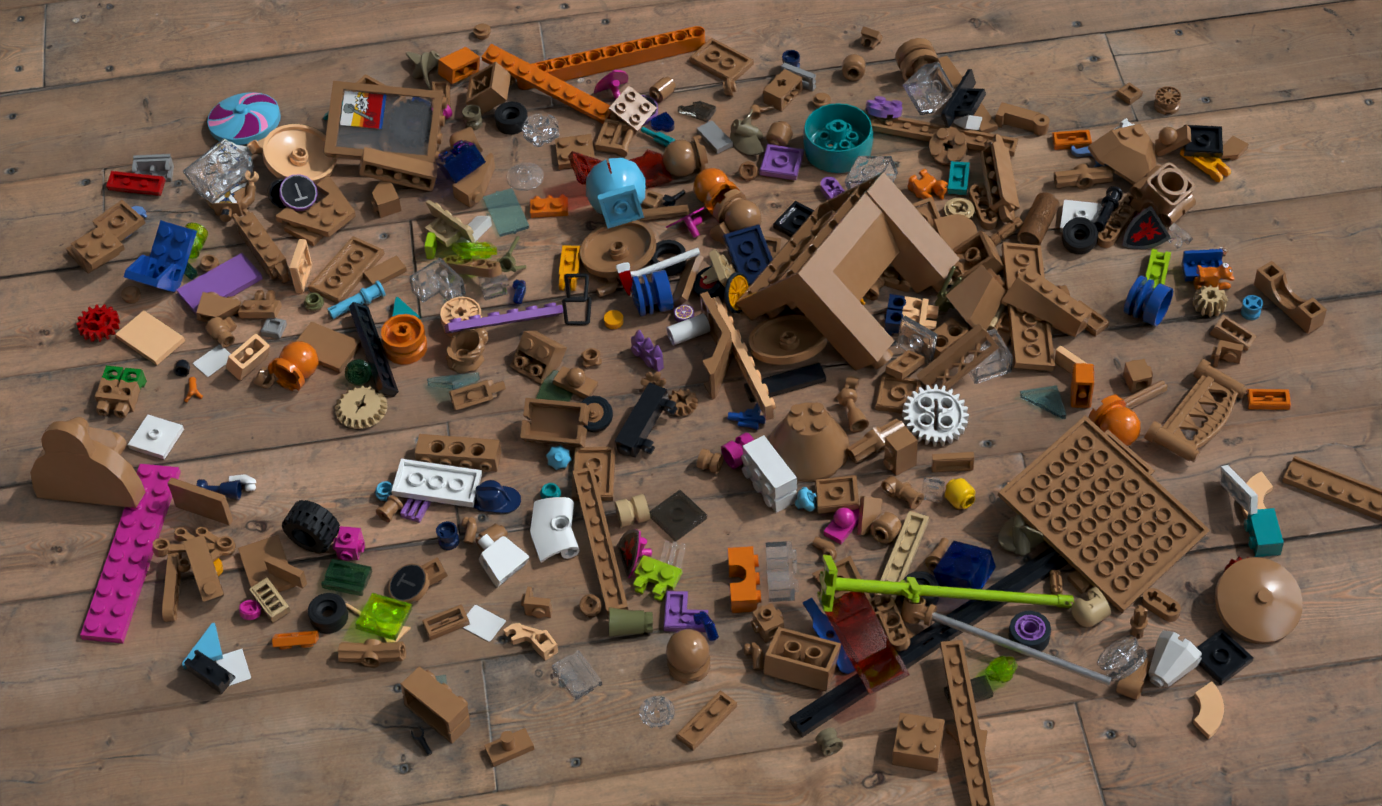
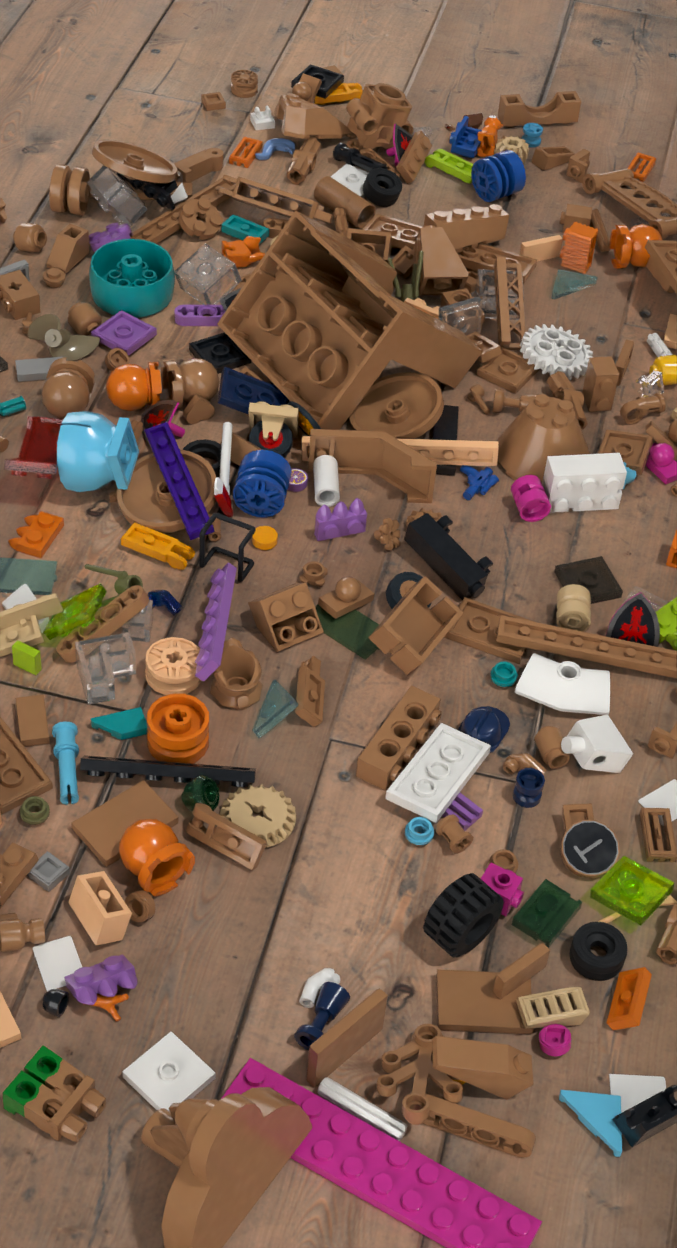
camera: 75 degrees left, 5 degrees down
(169, 524) = (361, 1108): none -> white axle
(203, 380) = (101, 979): none -> medium lavender plate
(331, 395) = (226, 836): none -> medium nougat plate
(378, 543) = (505, 859): none -> medium nougat plate
(558, 457) = (456, 648): medium azure piece -> none
(624, 245) = (178, 479): none -> dark purple tile
(710, 461) = (530, 526): medium nougat wheel -> none
(851, 91) = (69, 248): none -> medium nougat slope
(957, 76) = (134, 161): none -> medium nougat dish
(994, 485) = (658, 345): none -> white axle
(1142, 240) = (414, 156): none -> medium nougat plate
(1243, 262) = (475, 120): none -> reddish brown tile

